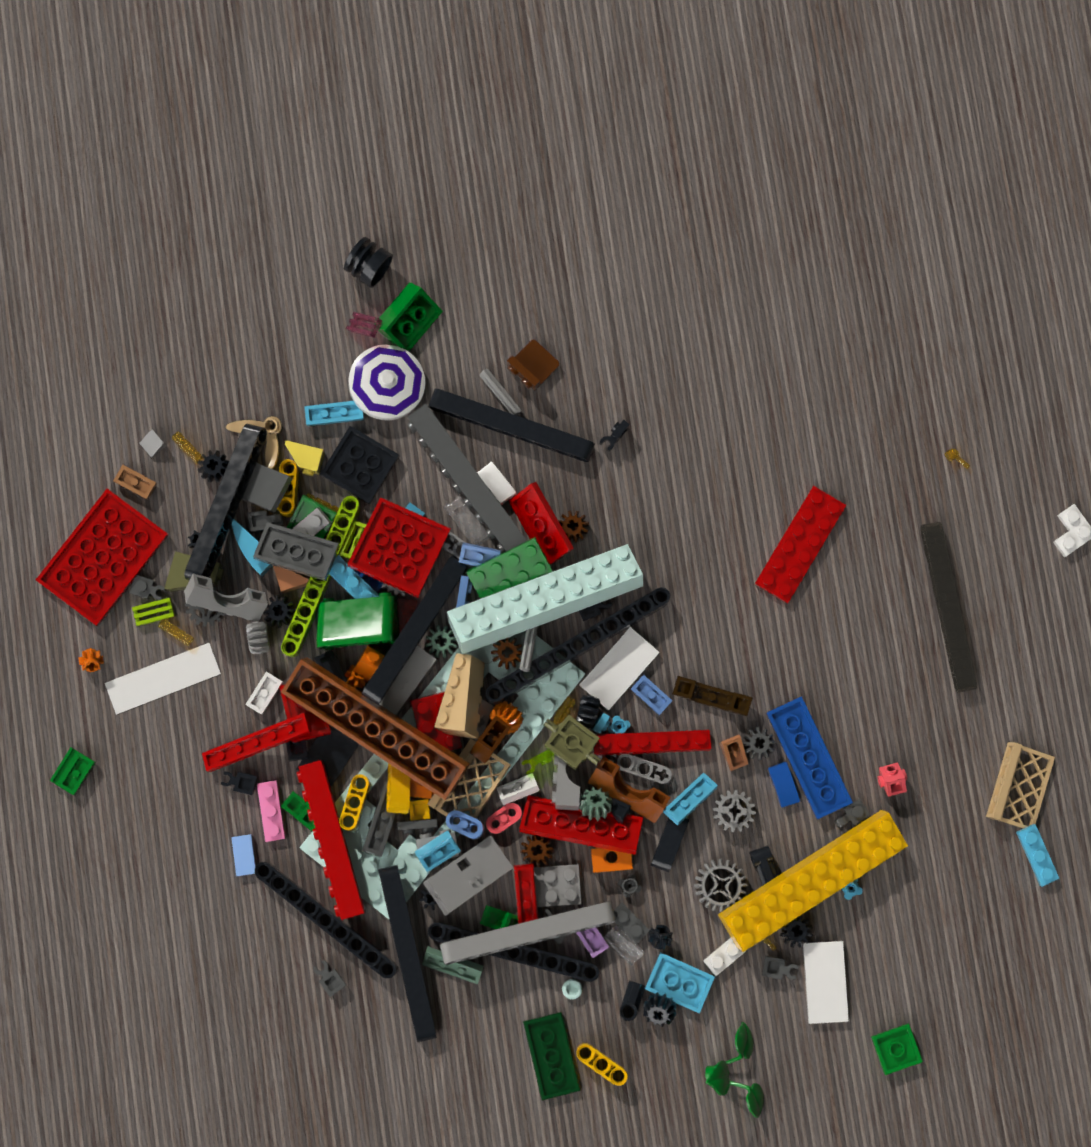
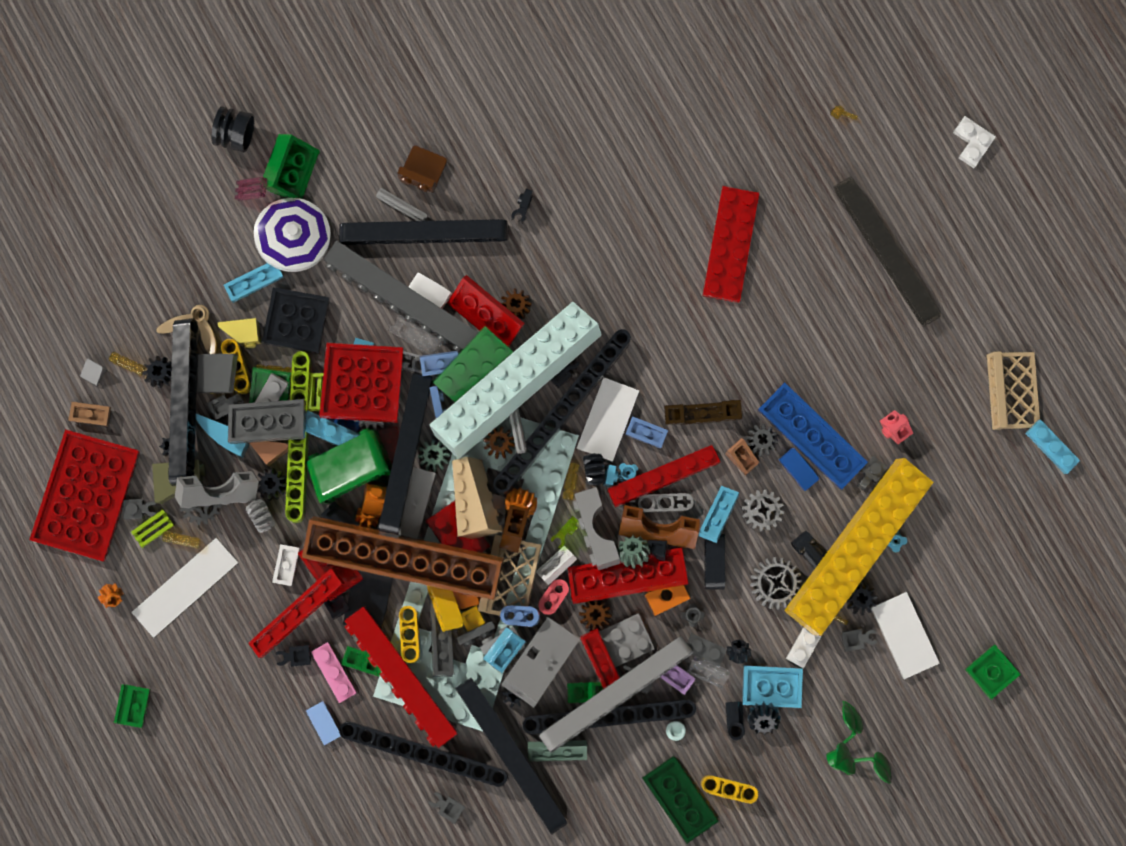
camera: 25 degrees left, 0 degrees up
(572, 742) = (590, 502): olive plate -> none

